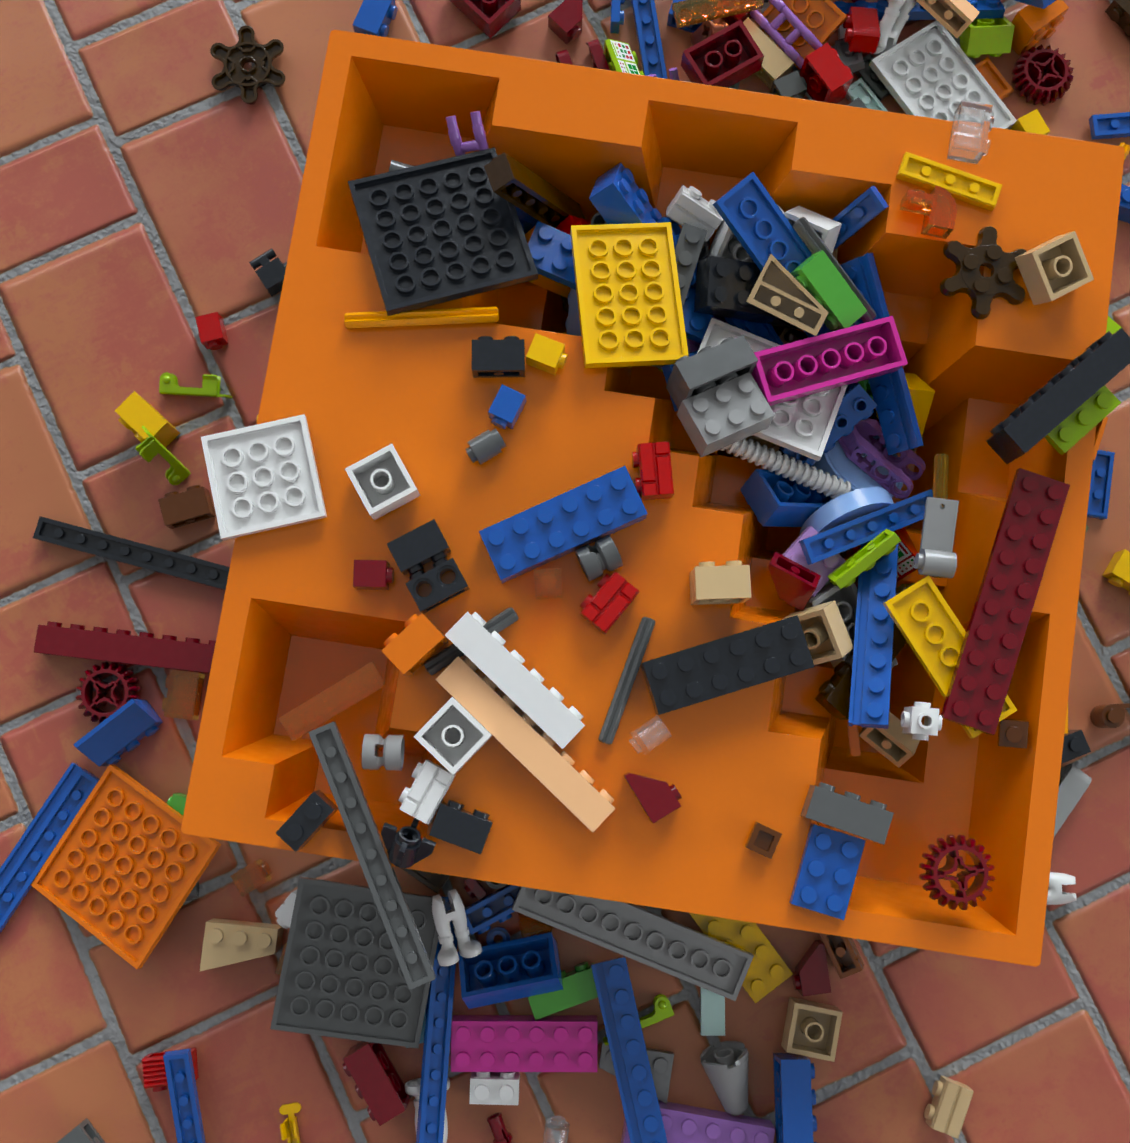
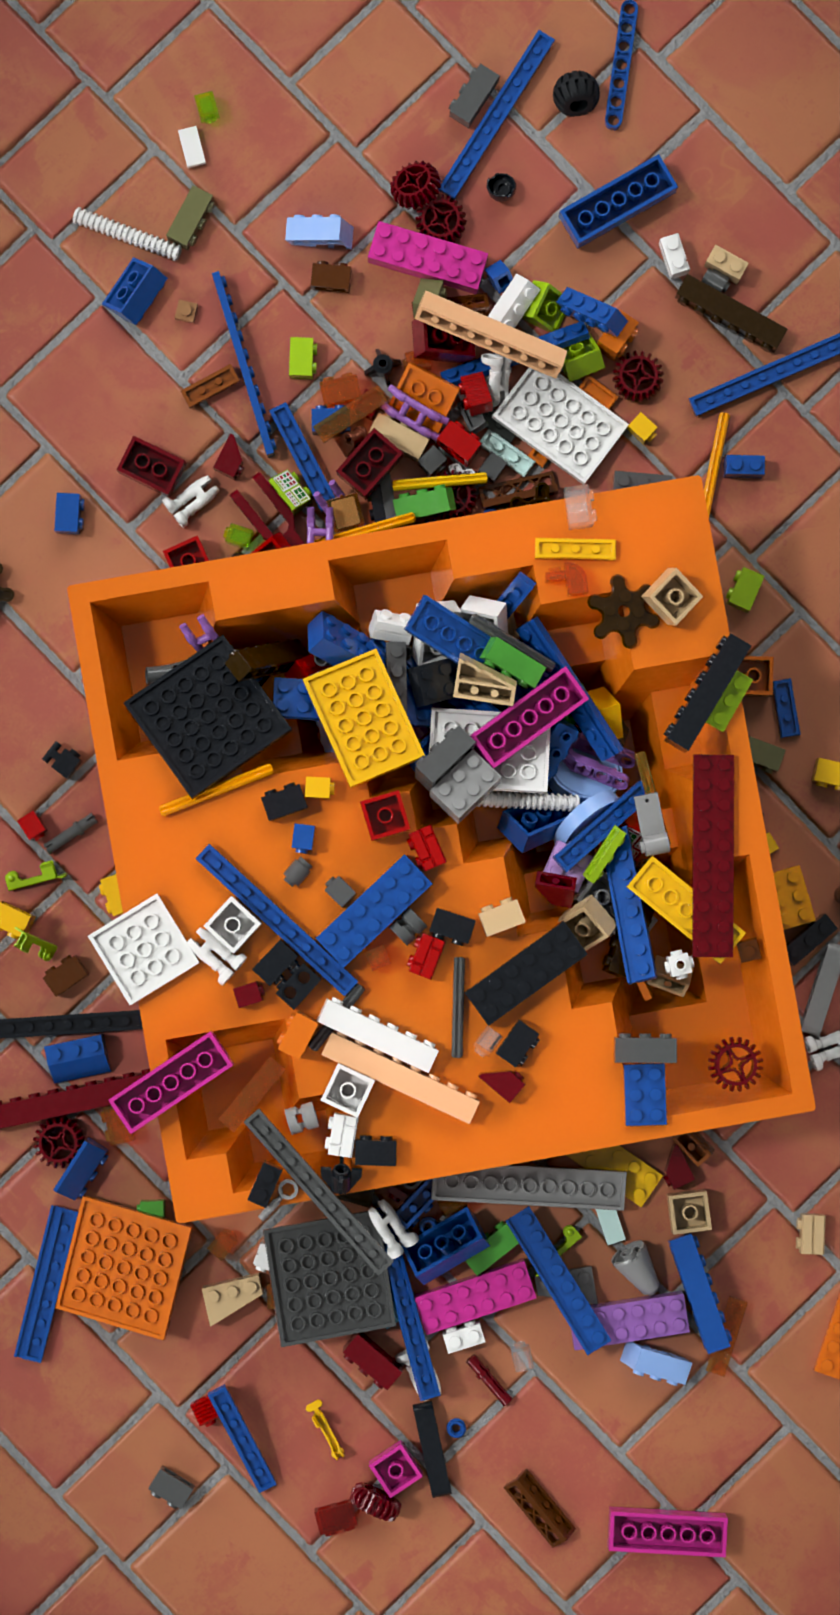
camera: 20 degrees left, 5 degrees up
(165, 604) = (77, 1058): none -> blue slope
(235, 650) = (171, 1082): none -> dark pink brick
(245, 355) = (76, 829): none -> dark grey pin
(313, 849) = (276, 1202): none -> light grey piece
(336, 507) = (204, 953): none -> white piece
(440, 497) = (276, 919): none -> blue plate
(526, 38) = (190, 492): none -> white piece
(529, 486) = (339, 890): none -> dark grey brick
(616, 412) = (385, 815): none -> red brick
(653, 576) = (452, 926): none -> black brick
(687, 751) = (517, 1043): none -> black brick
(763, 840) = (592, 1088): reddish brown plate -> none

